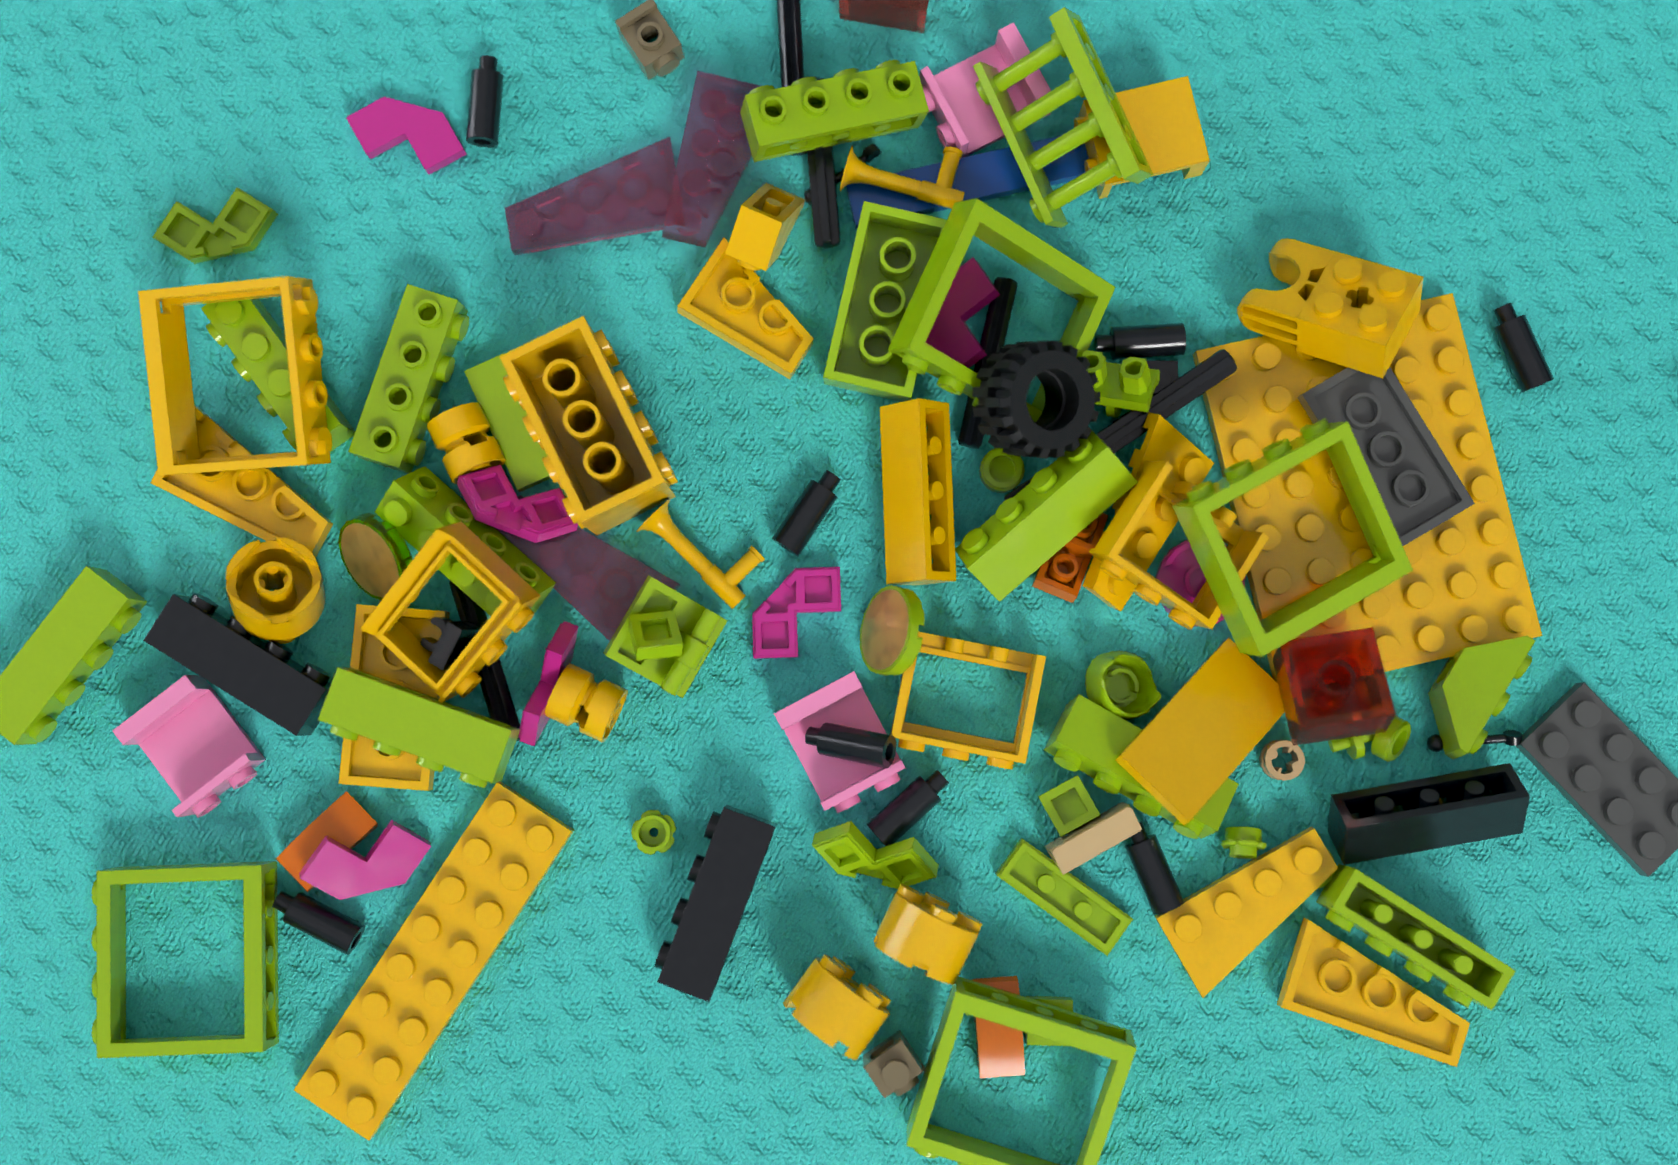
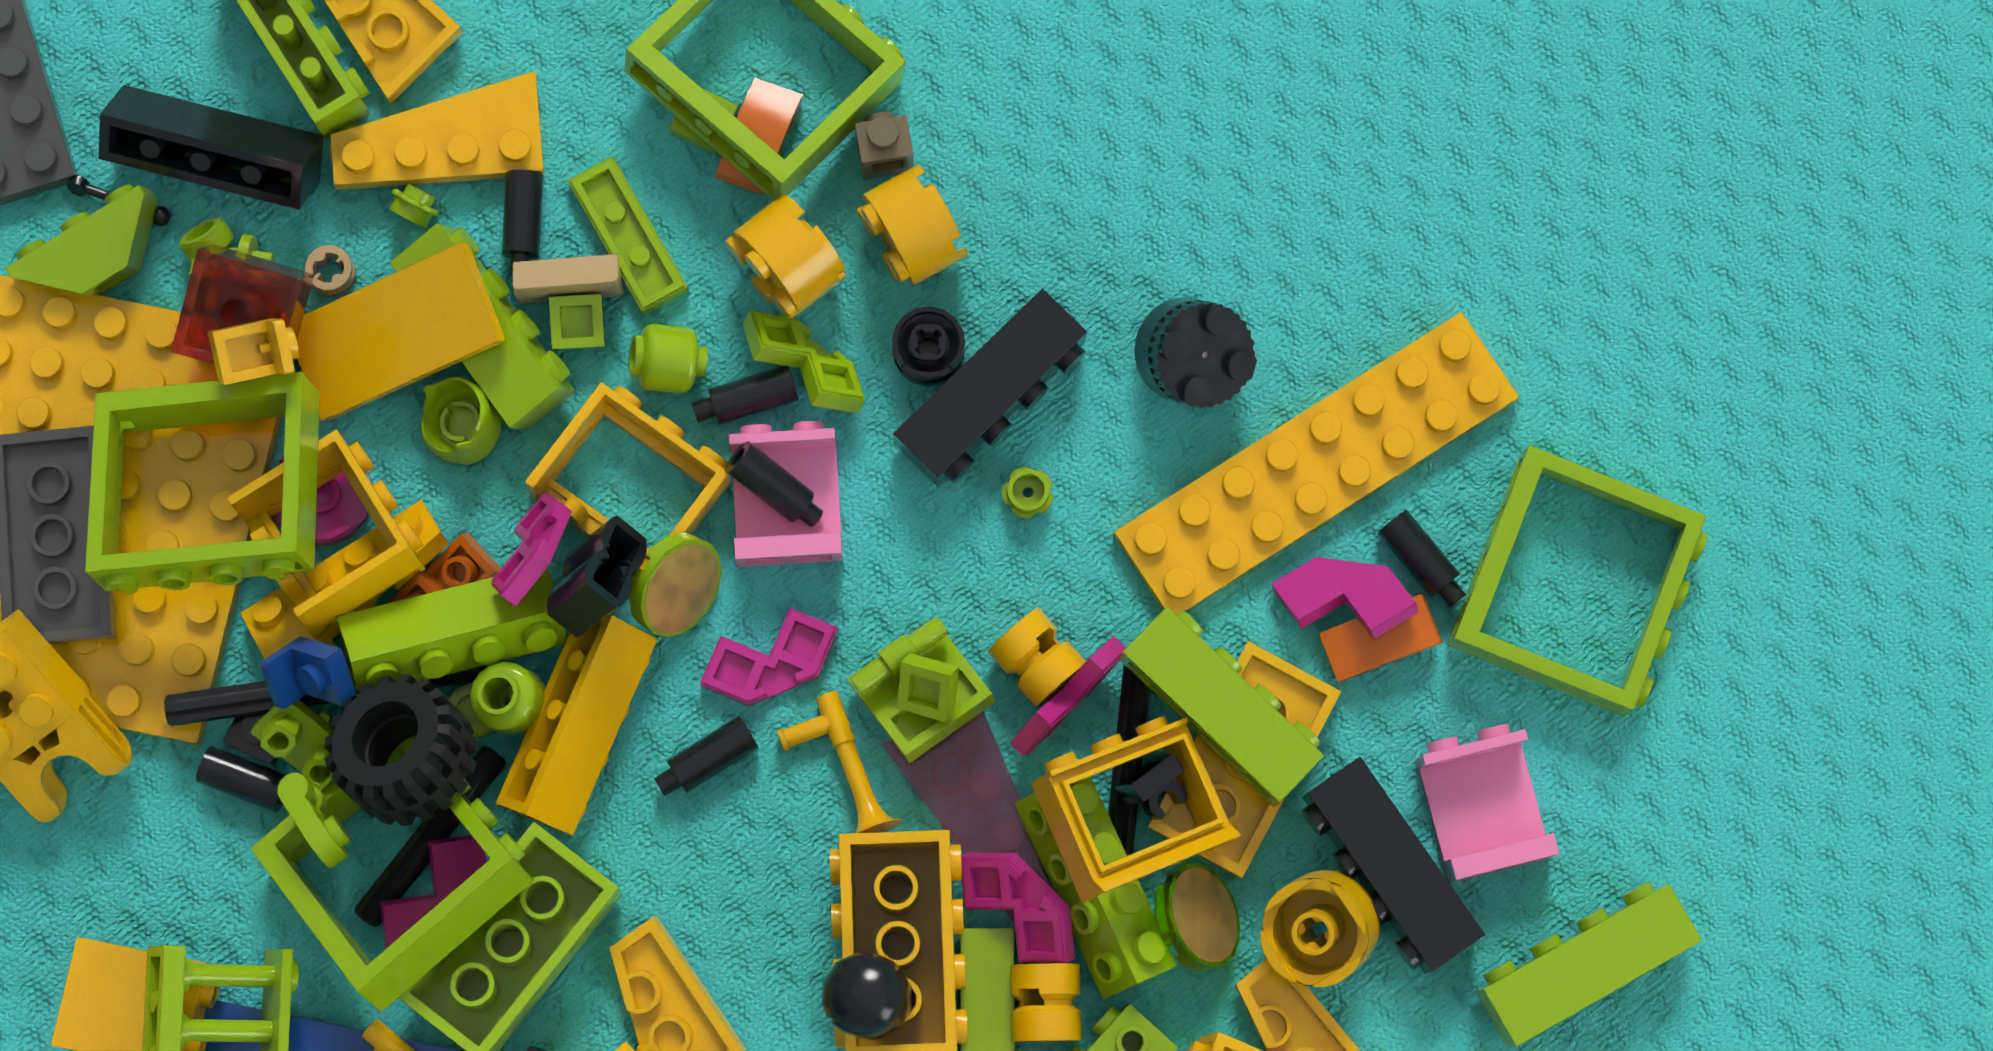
camera: 165 degrees left, 5 degrees down
(564, 1006) = (1194, 352): none -> black piece
(585, 365) = (866, 995): none -> black hair
(783, 914) = (928, 346): none -> black wheel
(951, 603) = (597, 576): none -> black brick
(978, 485) = (507, 697): none -> lime head
(984, 808) = (667, 358): none -> lime head
(1012, 621) = (540, 533): none -> dark pink tile
(1067, 313) = (308, 810): none -> lime plate
(1139, 429) = (307, 669): none -> blue bracket
(1308, 653) = (253, 350): none -> yellow bracket

